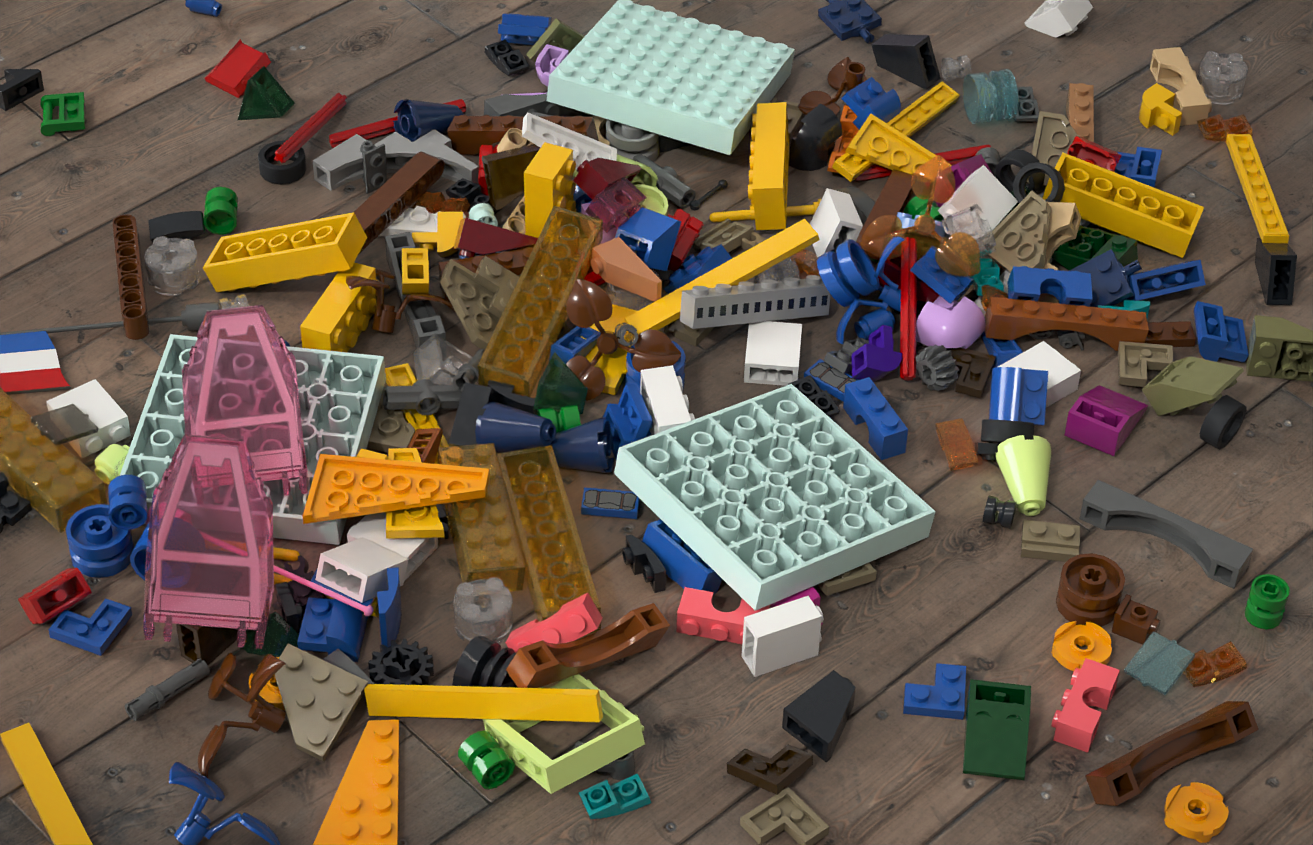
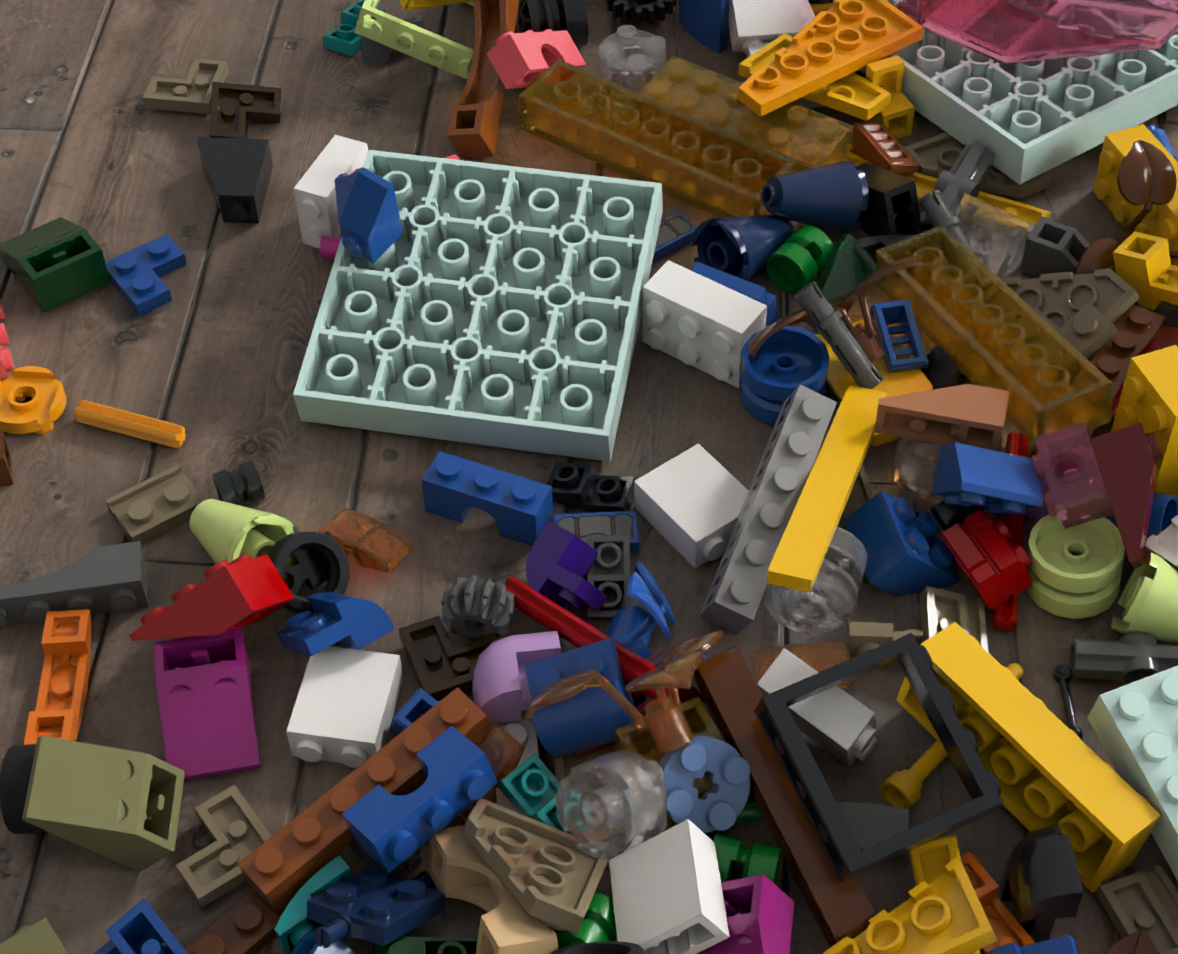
camera: 140 degrees right, 5 degrees up
(814, 530) = (367, 213): none -> blue slope
(841, 189) = (813, 790): none -> black window
(847, 273) = (701, 597): blue wheel -> none
(1029, 595) = (130, 424): none -> light orange axle
(1077, 429) = (227, 600): none -> red slope
(1090, 589) = (55, 451): reddish brown wheel -> none
(1178, 471) = (63, 676): none -> orange slope

